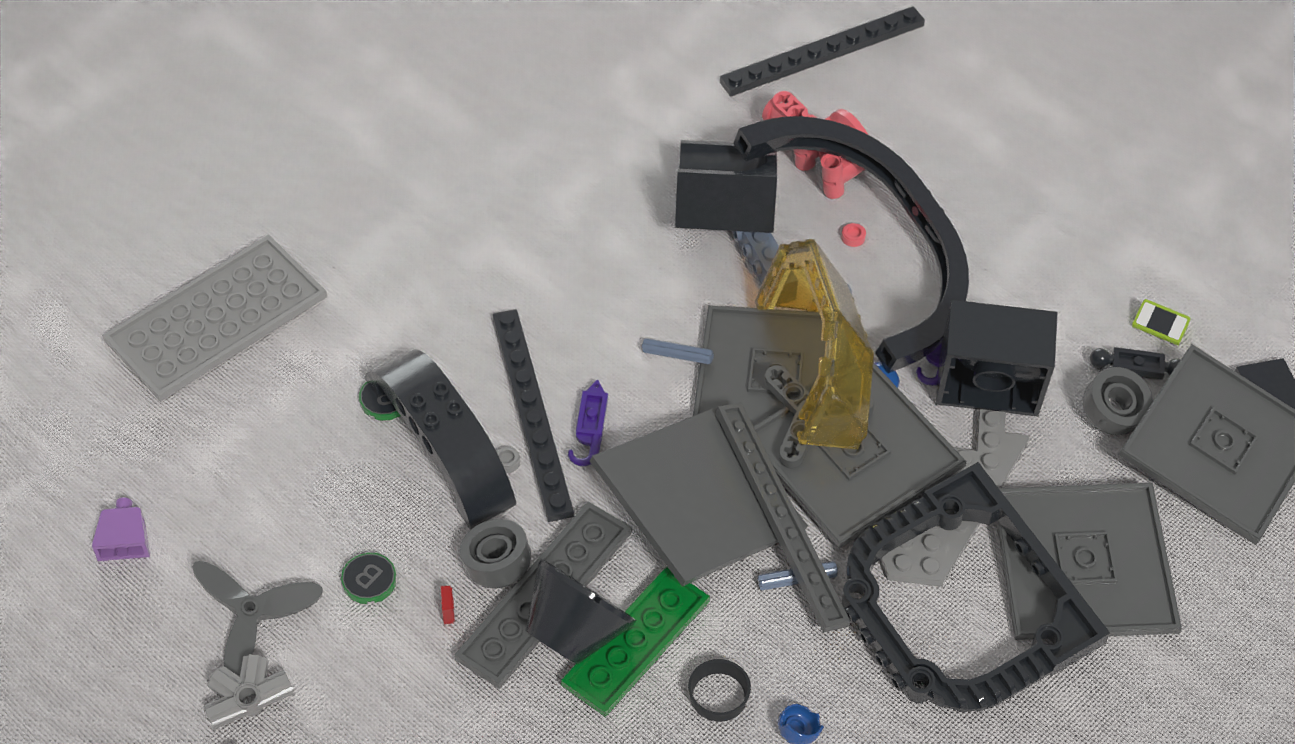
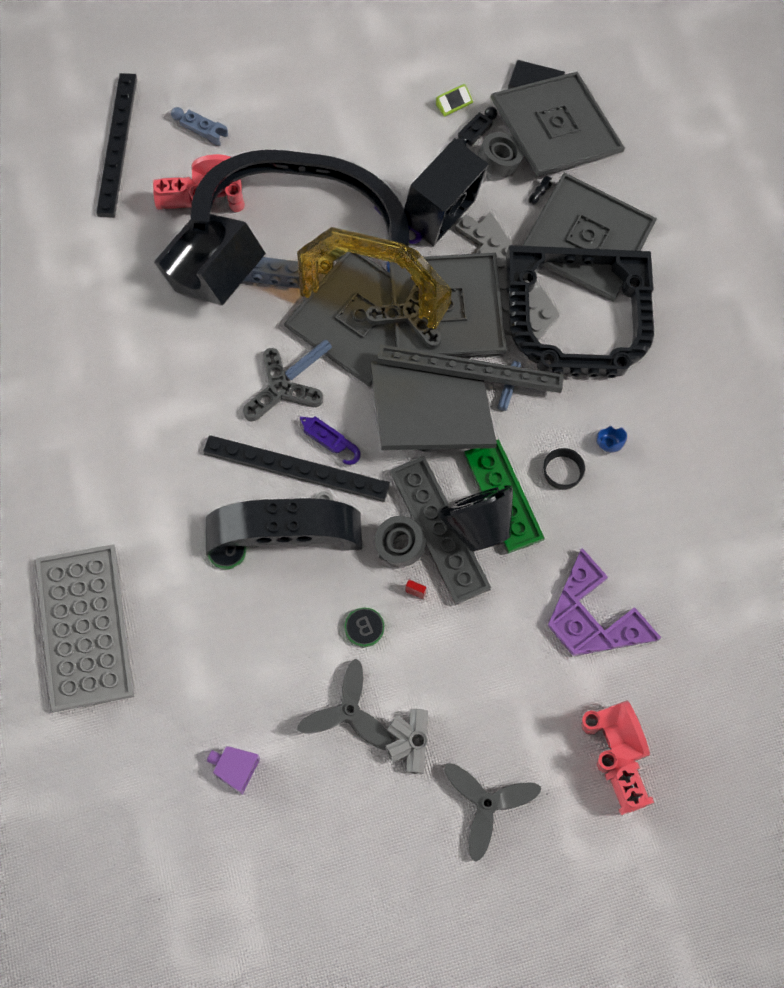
camera: 60 degrees left, 15 degrees up
(628, 338) = (276, 382): none -> dark grey piece
(853, 234) = (280, 214): coral tile -> none
(907, 105) = (200, 125): none -> sand blue plate
(1110, 476) = (540, 190): none -> black piece

